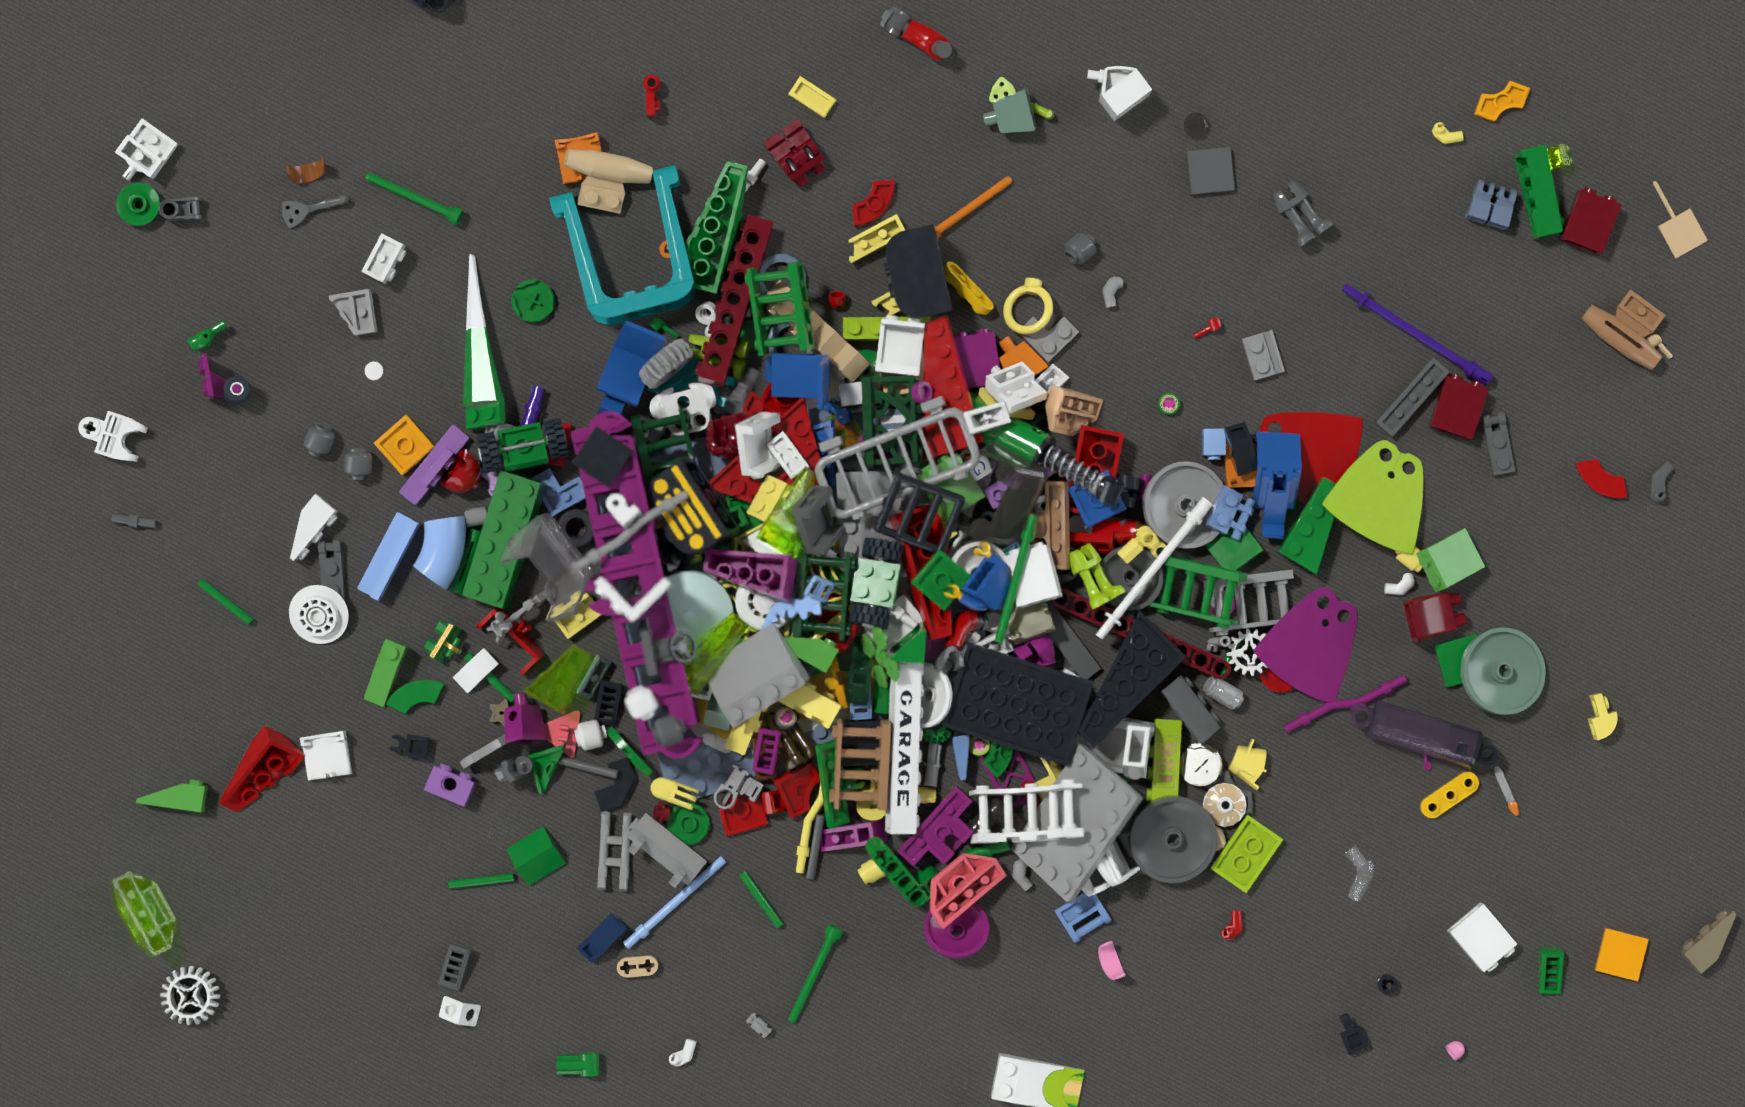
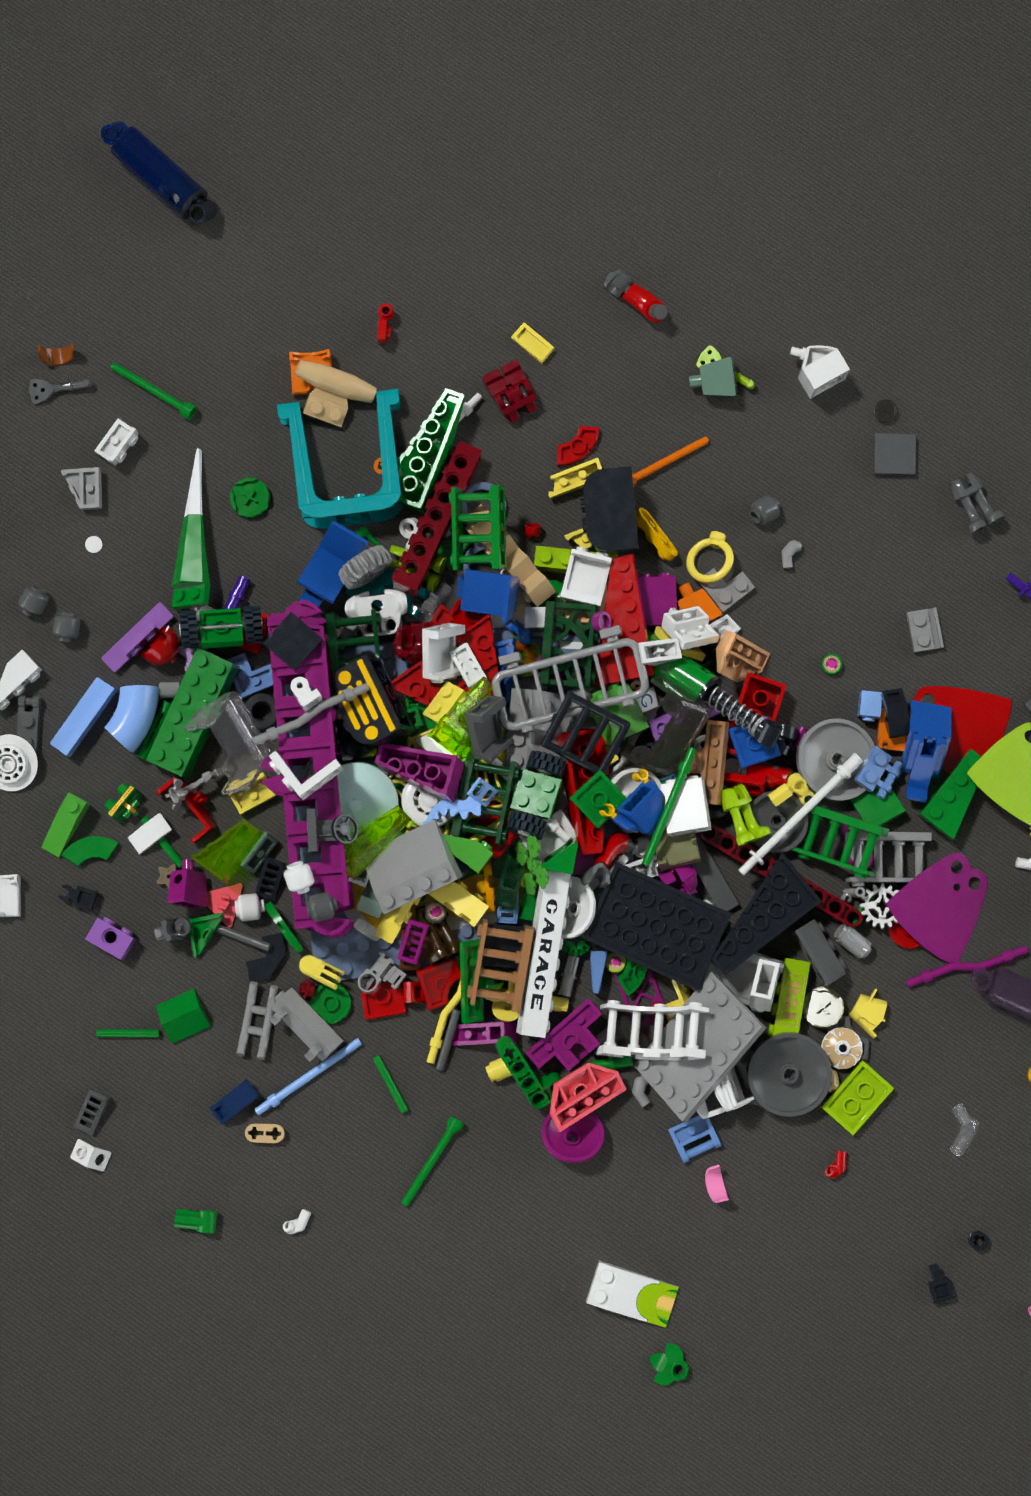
camera: 15 degrees right, 5 degrees down
(404, 445) = (112, 616): light orange tile -> none
(484, 751) = (146, 910): light grey tile -> none
(759, 1025) = (373, 1204): light grey piece -> none
(1214, 325) = (883, 596): red hand -> none

